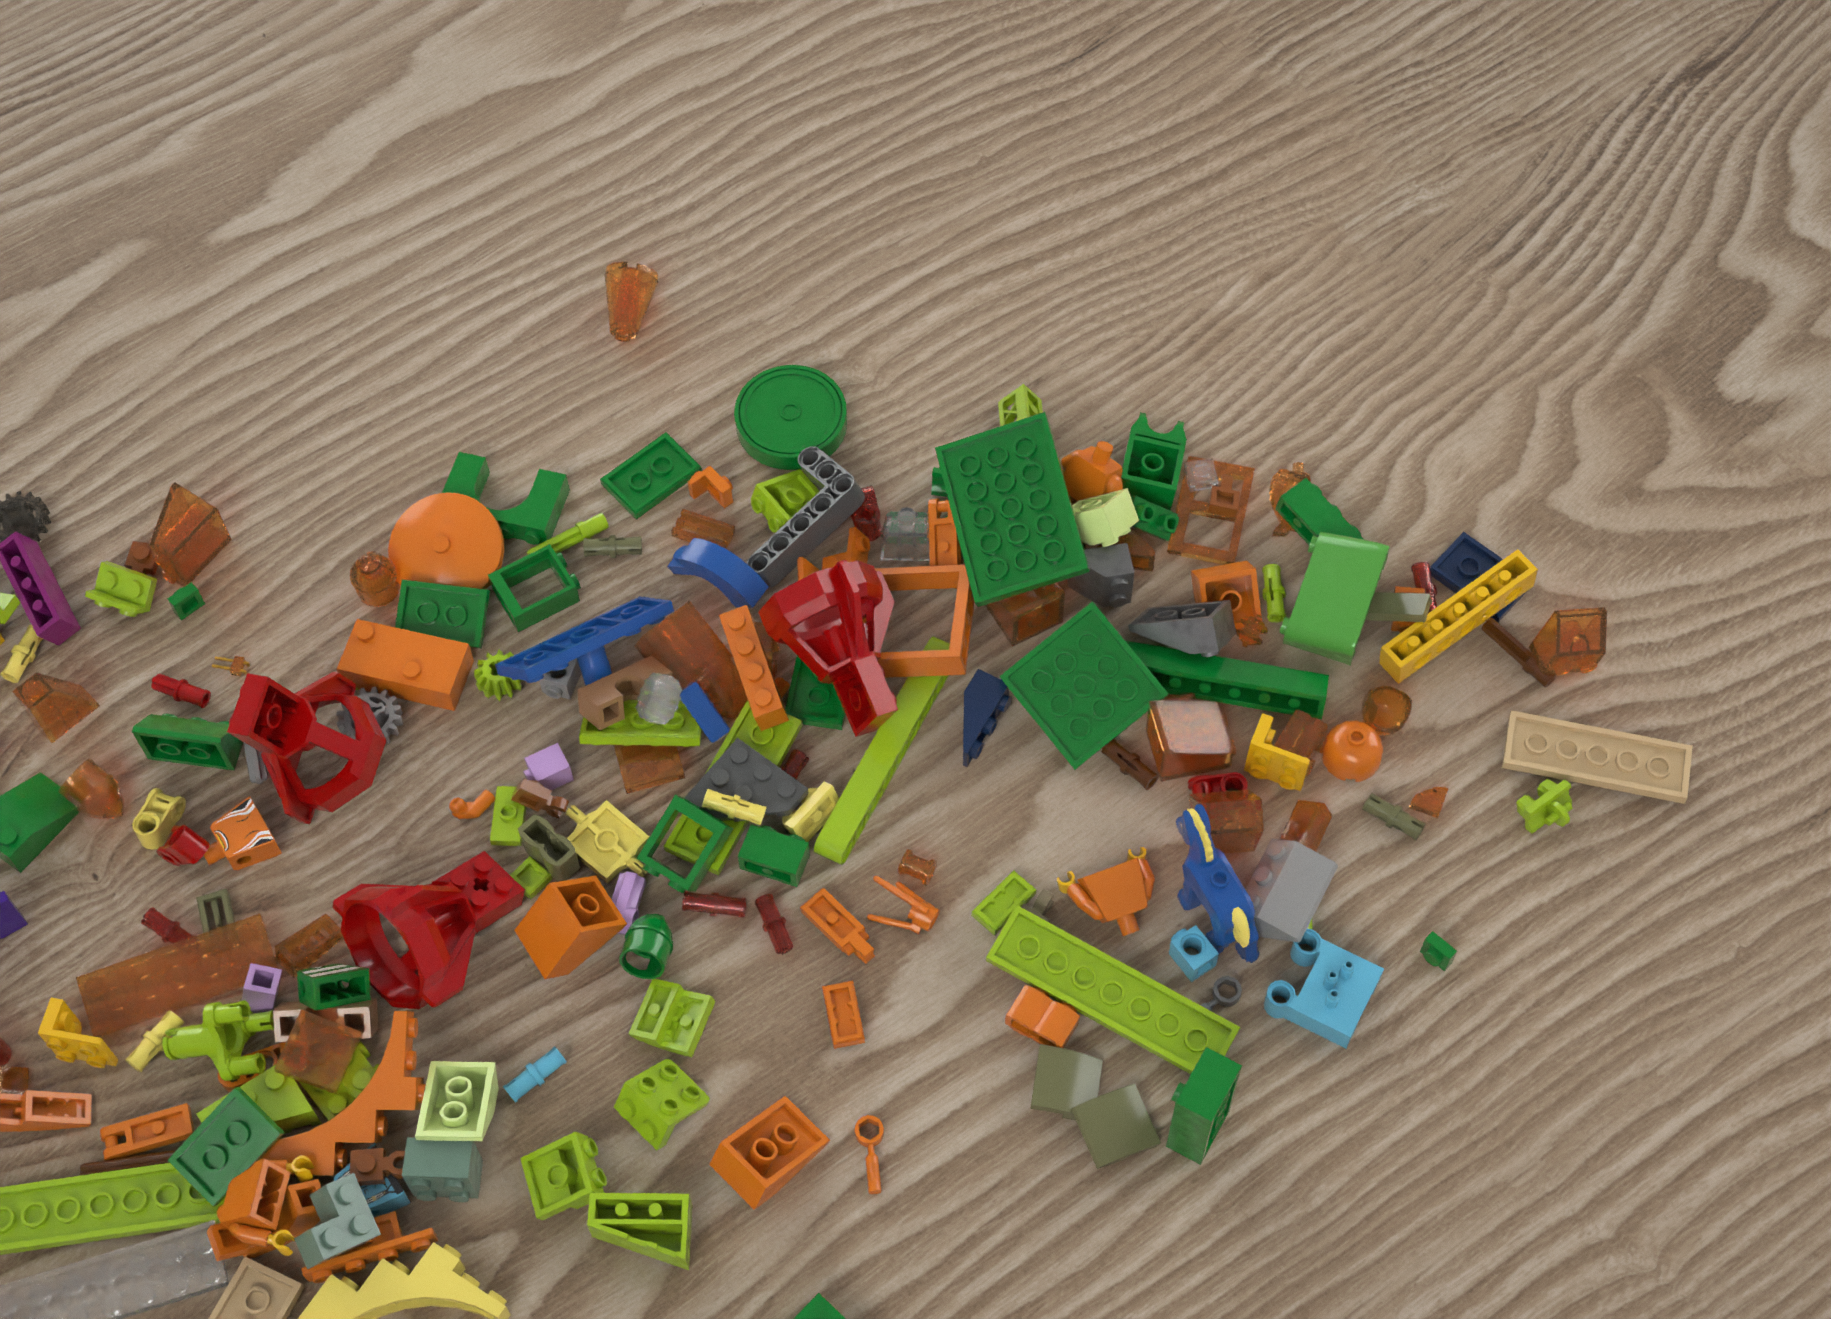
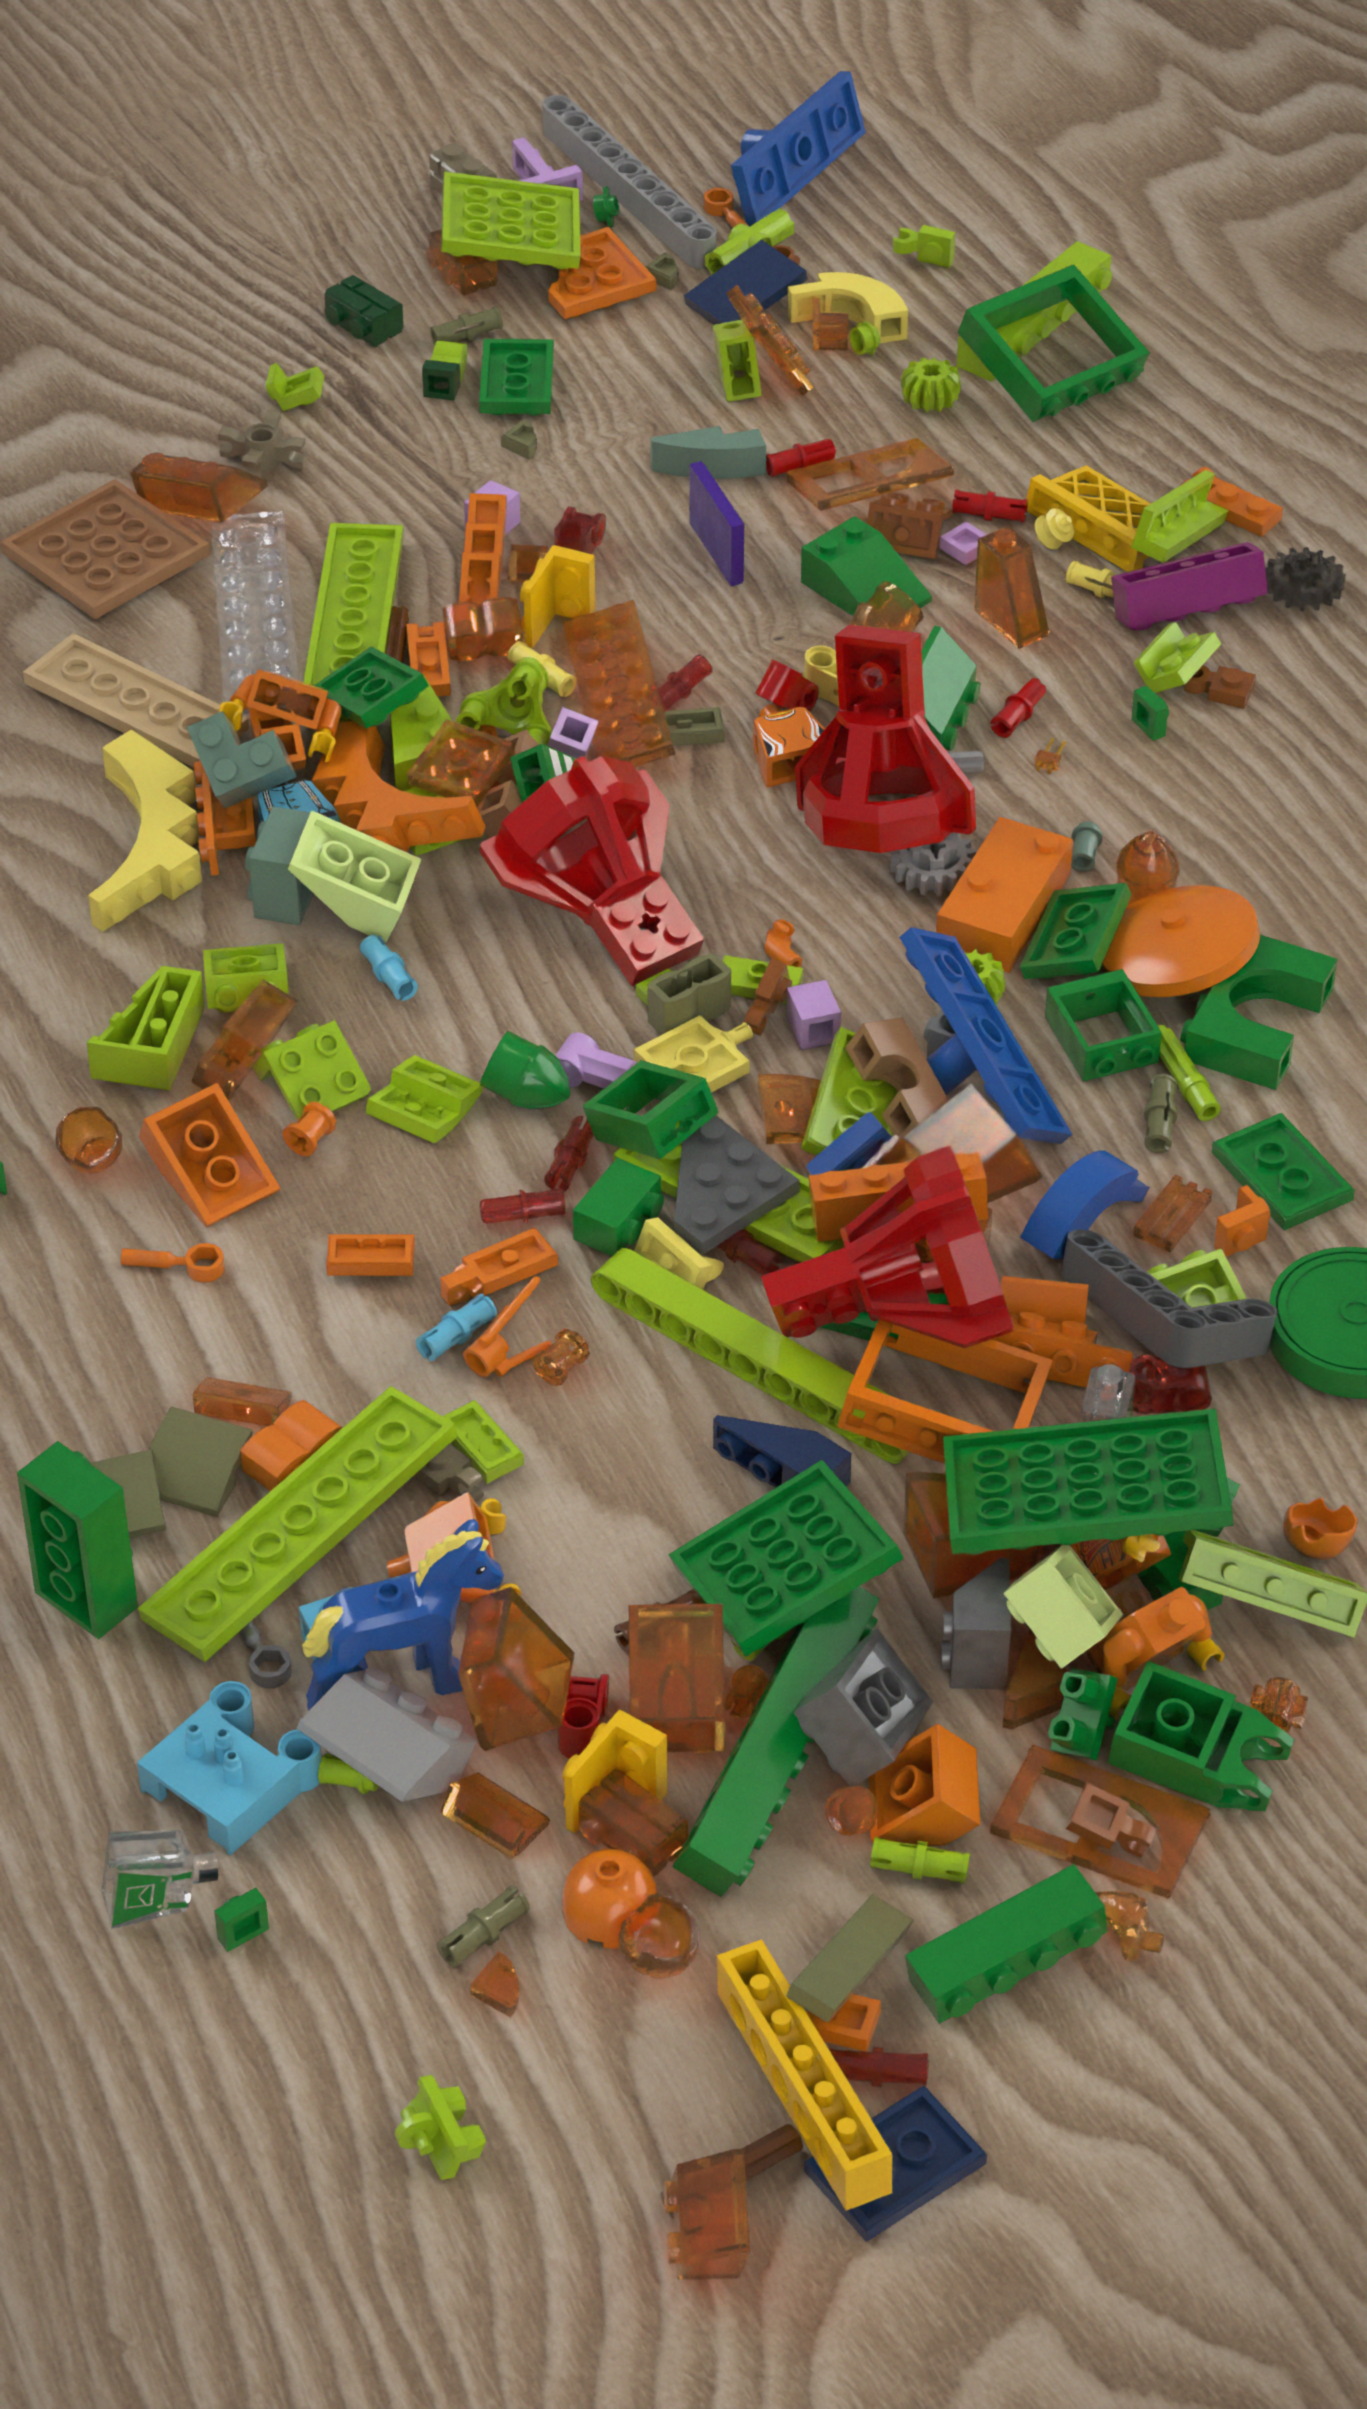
camera: 100 degrees right, 15 degrees down
(111, 1091) = (482, 628): none -> clear orange brick
(187, 536) = (1243, 704): clear orange slope -> none
(336, 625) = (1086, 840): none -> sand green pin
(372, 1165) = (308, 797): dark orange plate -> none
(568, 925) = (569, 995): orange slope -> none
(642, 1154) = (243, 1037): none -> clear orange slope
(659, 698) = (868, 1090): clear gear -> none
(723, 1087) = (309, 1129): none -> orange bush
(734, 807) = (686, 1155): light yellow pin -> none
(771, 1241) = (88, 1140): none -> clear orange hair
(902, 941) = (456, 1327): none -> medium azure pin
(968, 417) = (1319, 1530): none -> orange hair
(997, 1068) = (240, 1401): none -> clear orange slope
(1112, 426) = (1280, 1703): none -> clear orange gear
(1200, 474) = (1164, 1806): clear plate -> none
(1335, 596) = (878, 1896): bright green windscreen -> none
(1430, 1008) = (151, 1875): none -> clear torso
(1597, 756) = (507, 2230): tan plate -> none

